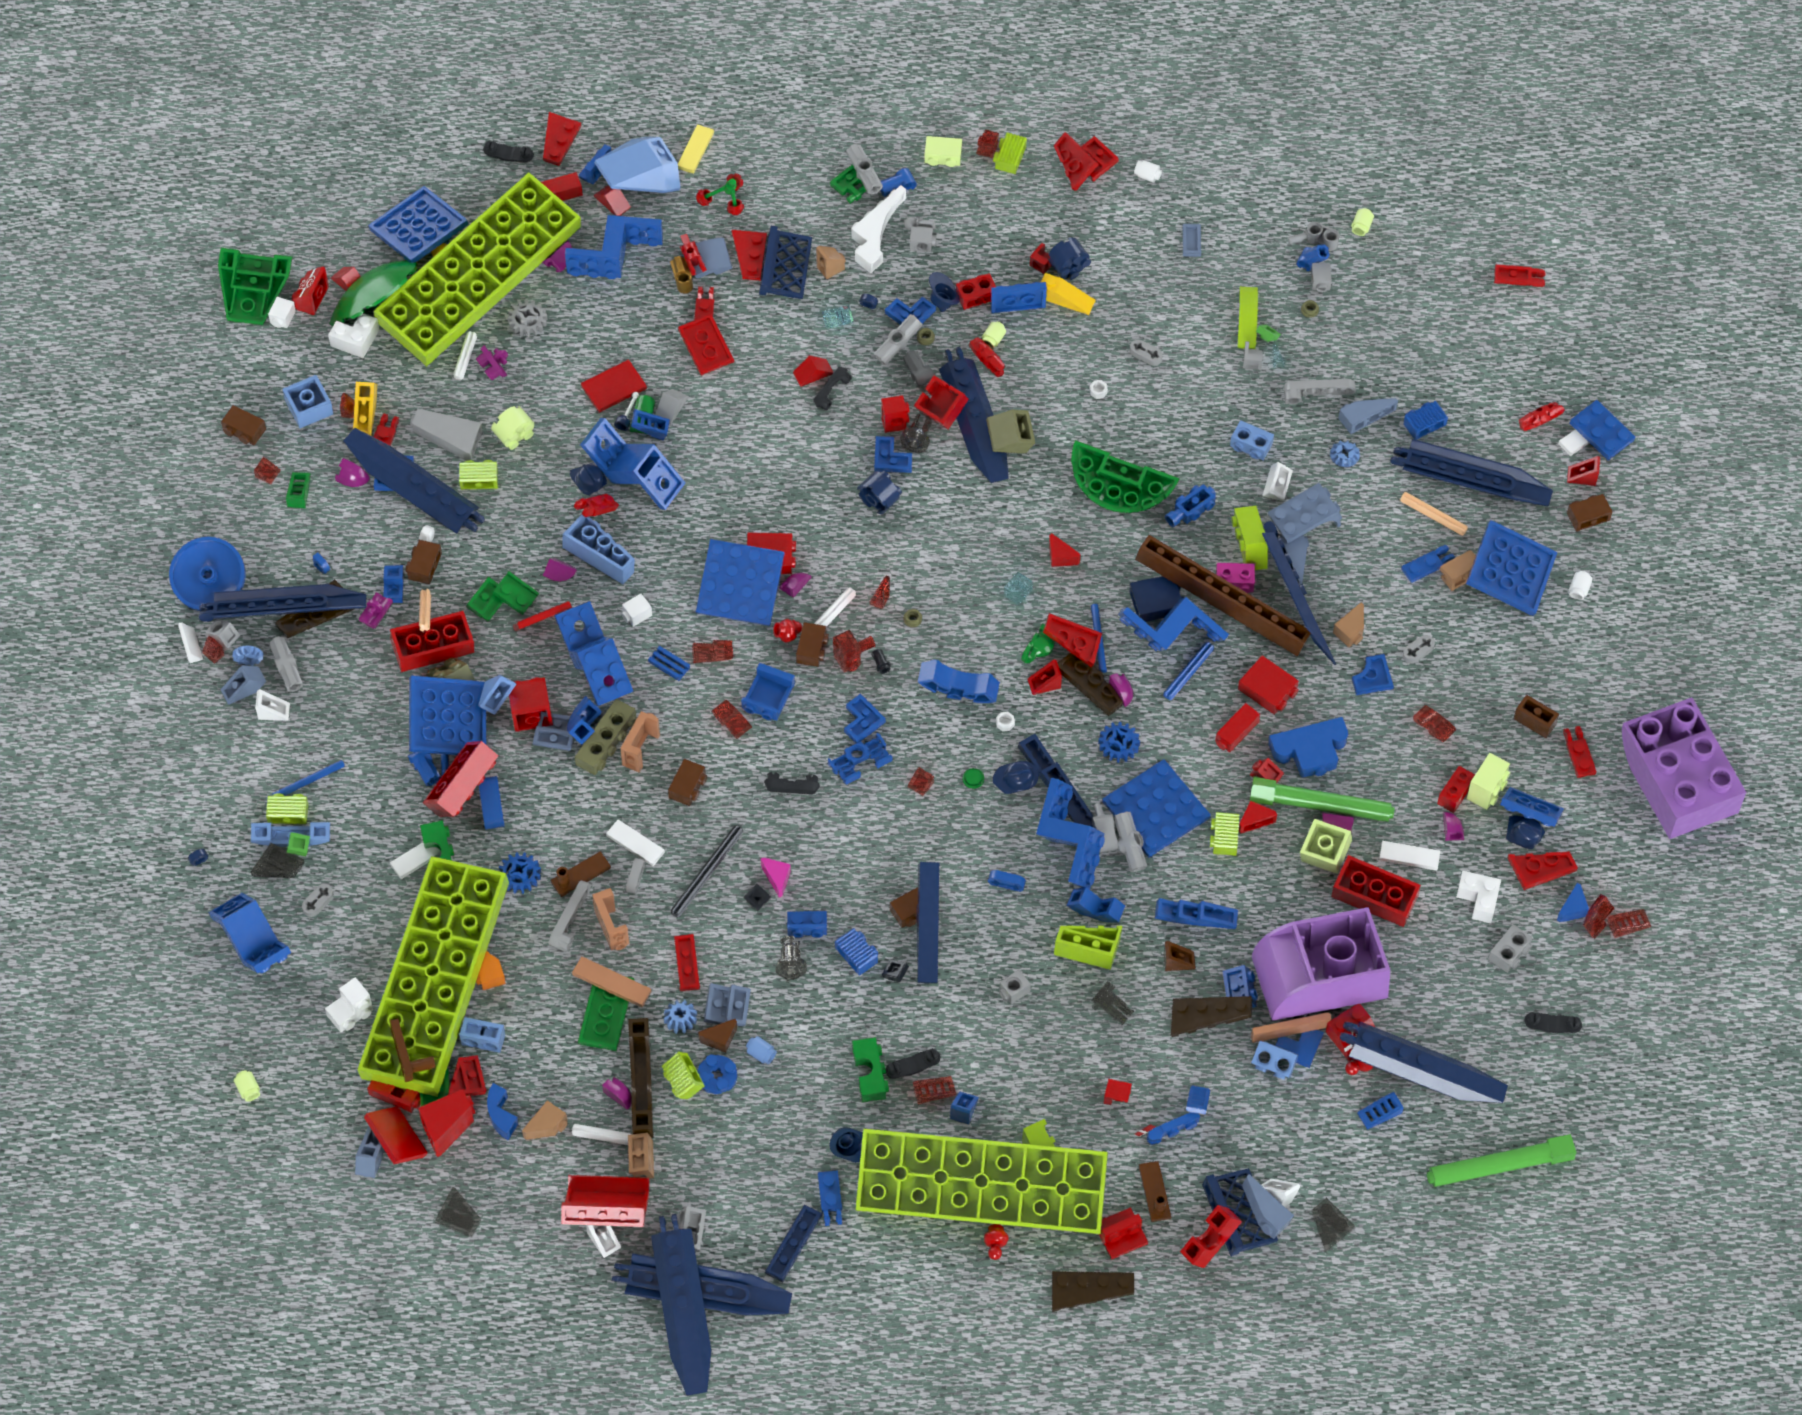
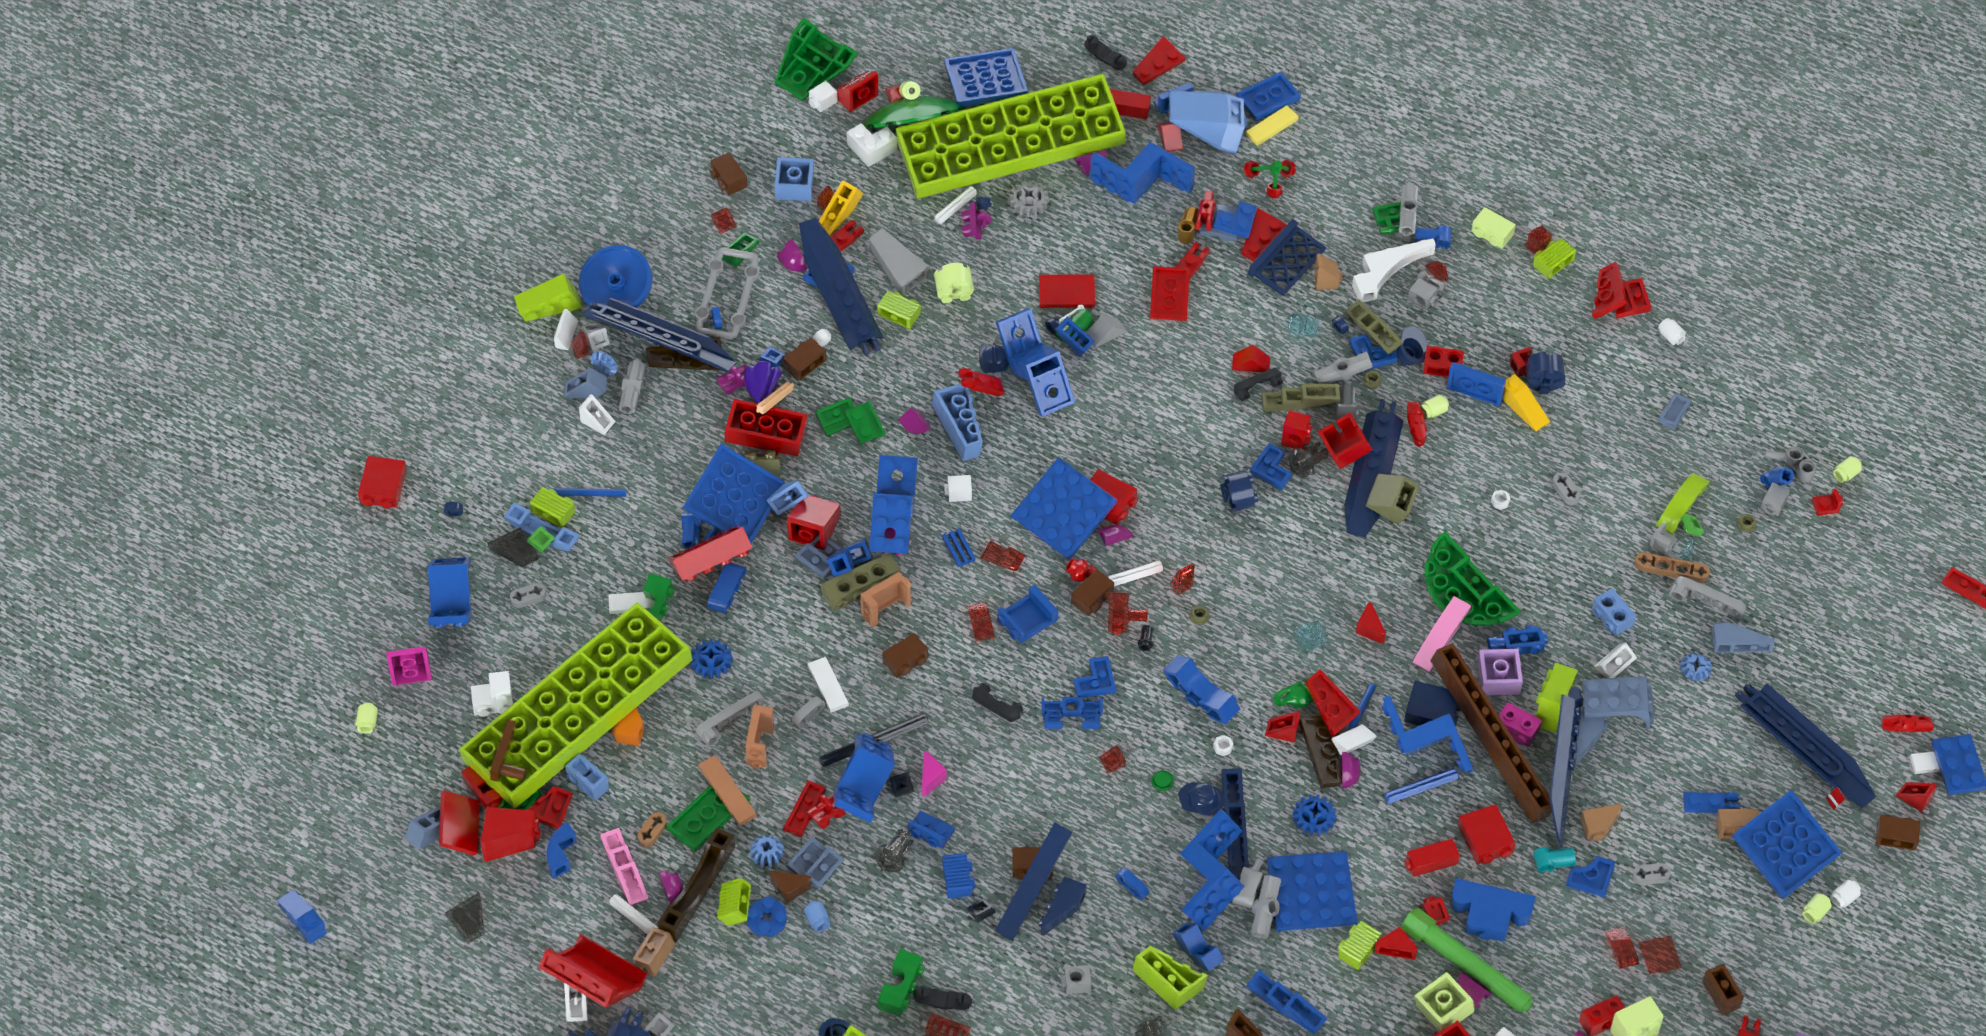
camera: 30 degrees right, 5 degrees down
(116, 865) = (382, 482): none -> red brick
(156, 622) = (548, 299): none -> lime wedge
(257, 1019) = (409, 665): none -> dark pink slope
(304, 564) = (737, 319): none -> light grey bar
(309, 1291) = (303, 916): none -> blue slope
(361, 269) = (904, 87): none -> yellowish green brick
(402, 602) = (761, 380): none -> dark purple hat
(489, 342) = (983, 203): none -> dark blue plate
(542, 616) = (869, 451): red tile -> none
(546, 1122) = (591, 879): medium nougat slope -> none
(562, 1050) = (649, 827): none -> medium nougat beam
(564, 1096) = (624, 866): none -> bright pink slope
(586, 870) = (766, 686): reddish brown piece -> none
(677, 123) = (1269, 96): none -> blue plate
(709, 952) = (825, 811): none -> red hips
(725, 251) = (1237, 224): none -> blue plate
(727, 907) = (864, 777): none -> blue bracket
(877, 382) = (1301, 398): none -> olive slope
(901, 289) = (1373, 327): none -> olive slope
(921, 211) = (1438, 269): none -> clear red slope
(962, 927) = (1065, 903): none -> dark blue slope
(1110, 659) = (1353, 739): none -> white slope
(1125, 531) = (1442, 632): none -> bright pink slope
(1194, 538) = (1500, 671): none -> lavender brick
(1272, 374) = (1672, 564): none -> medium nougat beam
(1332, 679) = (1550, 859): none -> teal piece
(1364, 259) = (1828, 503): none -> red bracket
(1425, 420) = (1791, 673): blue brick -> none
(1434, 513) = (1746, 760): light nougat axle -> none
(1466, 714) = (1660, 955): none -> clear red piece
(1523, 509) = (1835, 798): none -> red sticker
(1565, 609) = (1816, 908): none -> yellowish green brick

